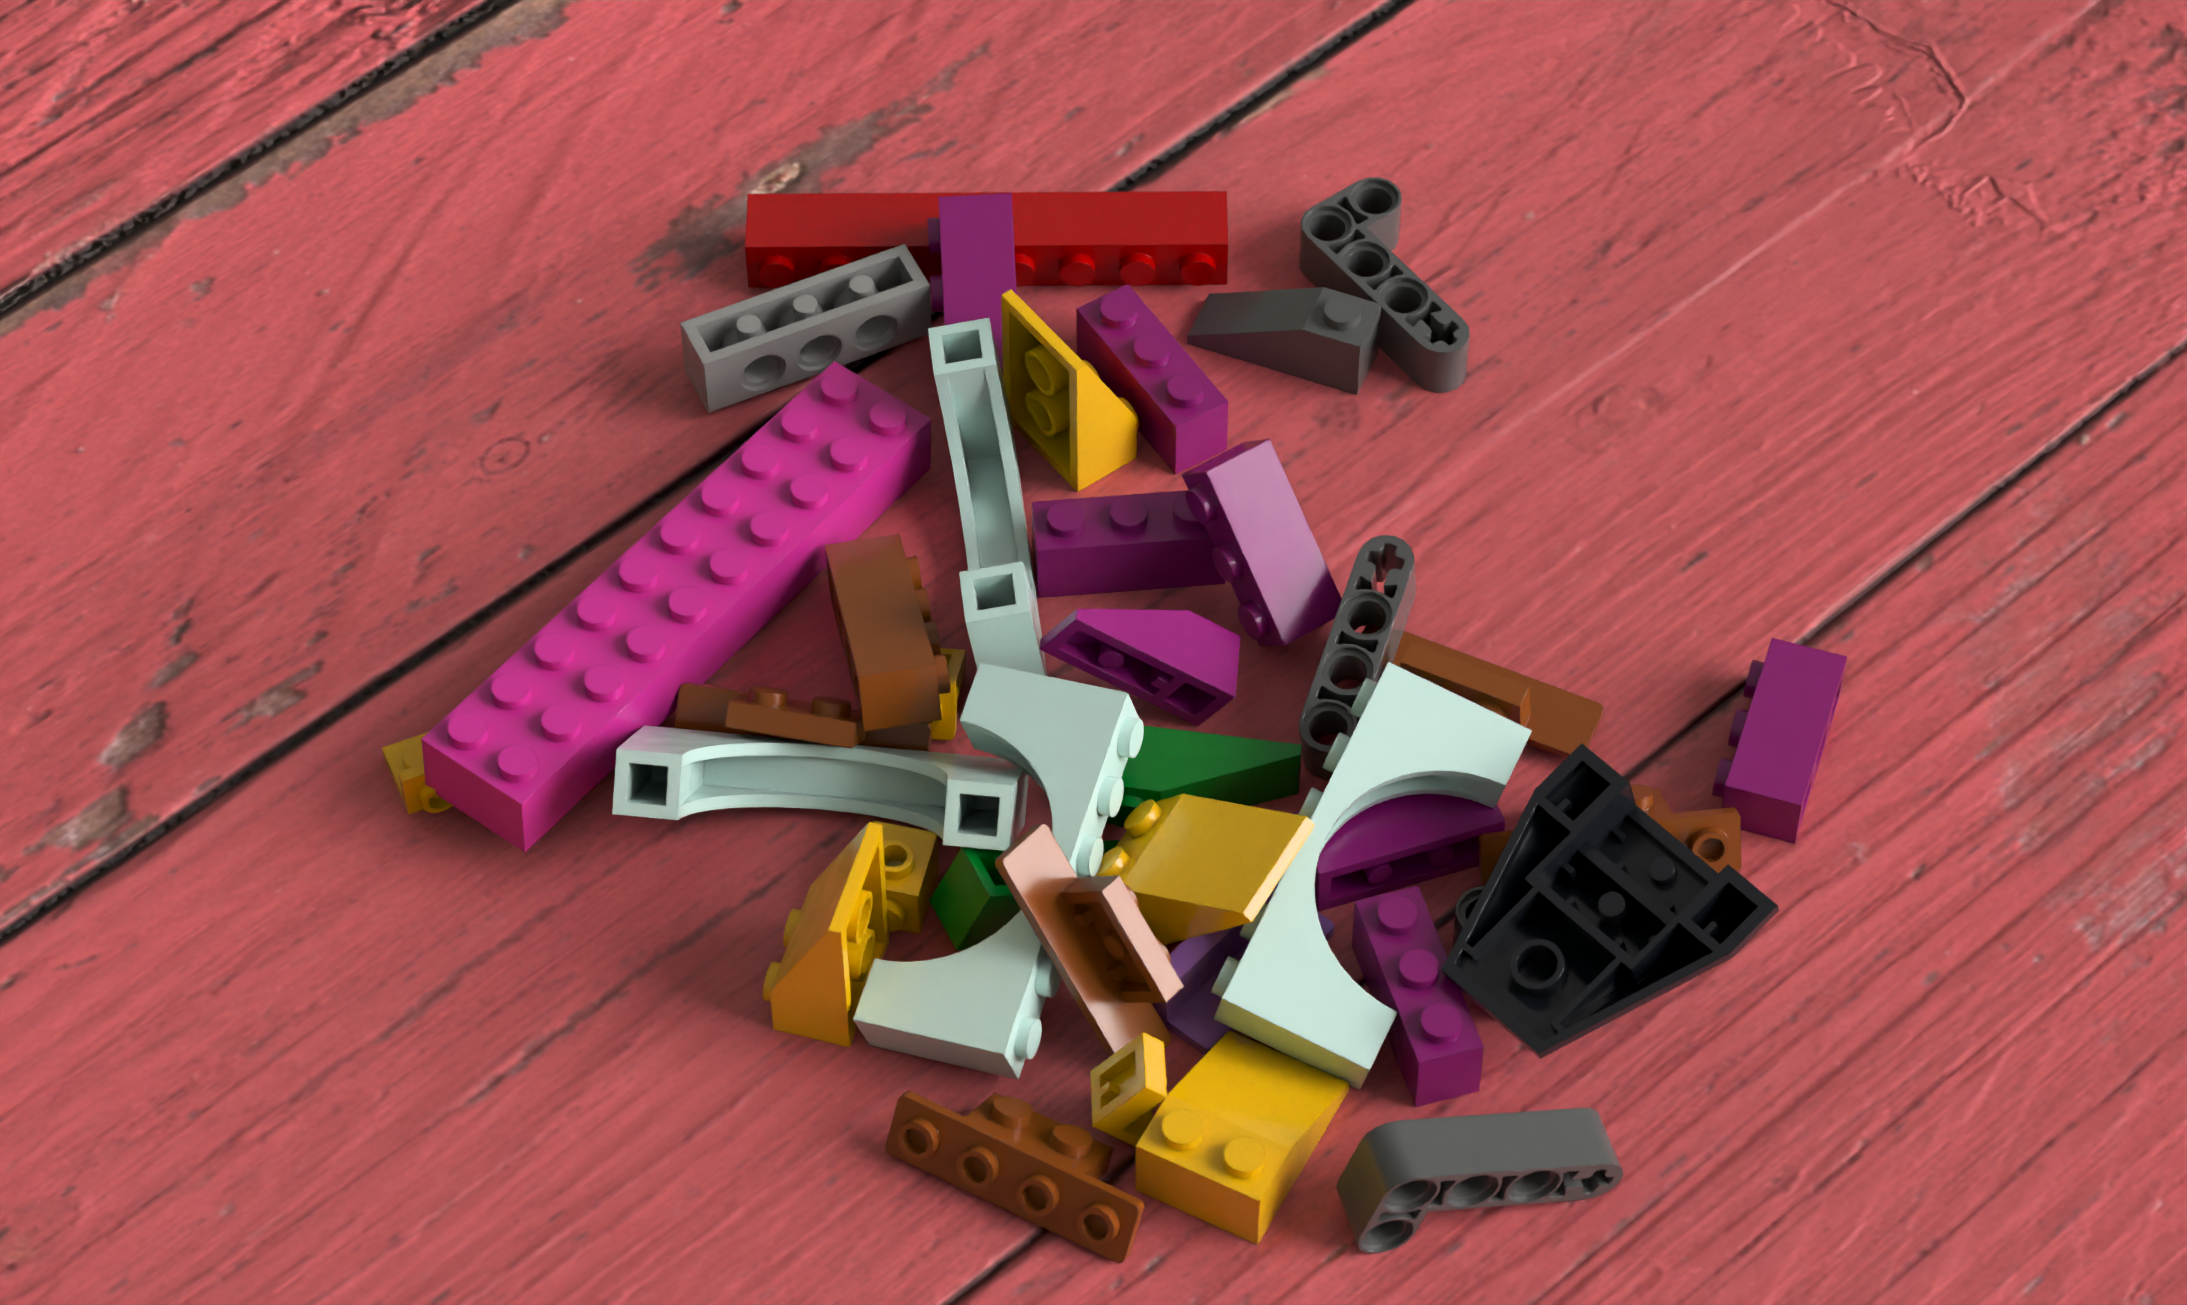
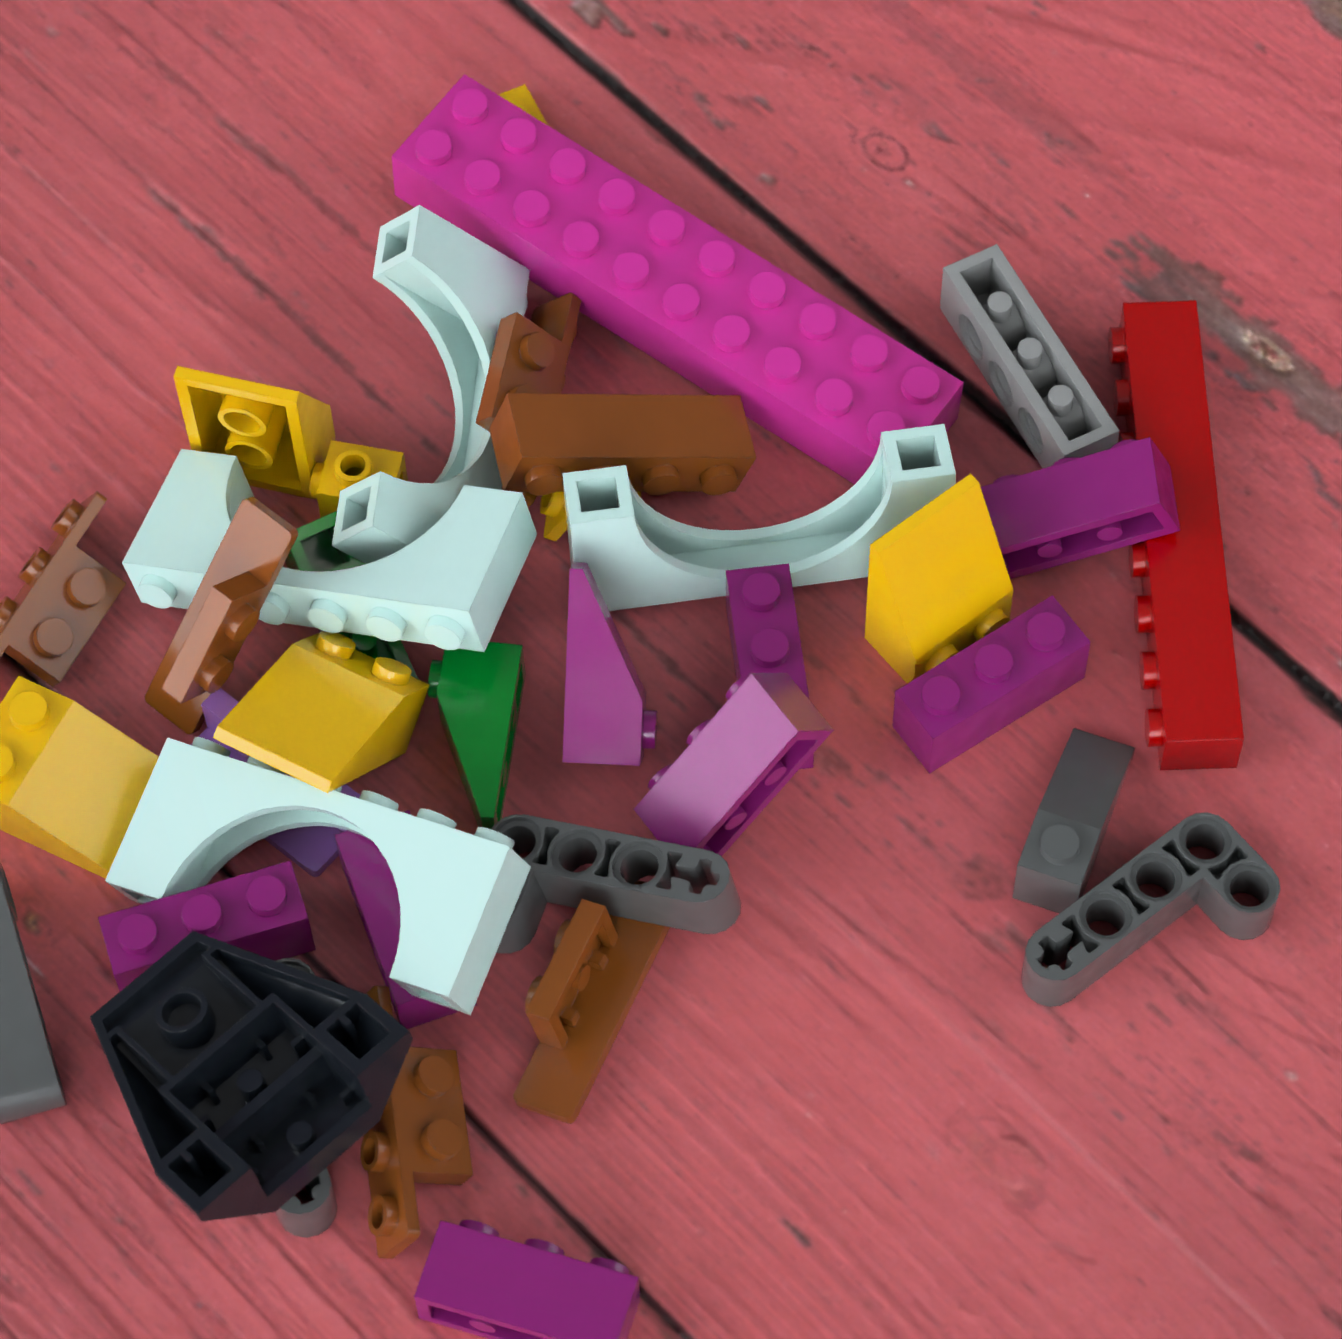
camera: 90 degrees right, 10 degrees up
(1129, 1088) = (100, 682): yellow bracket -> none

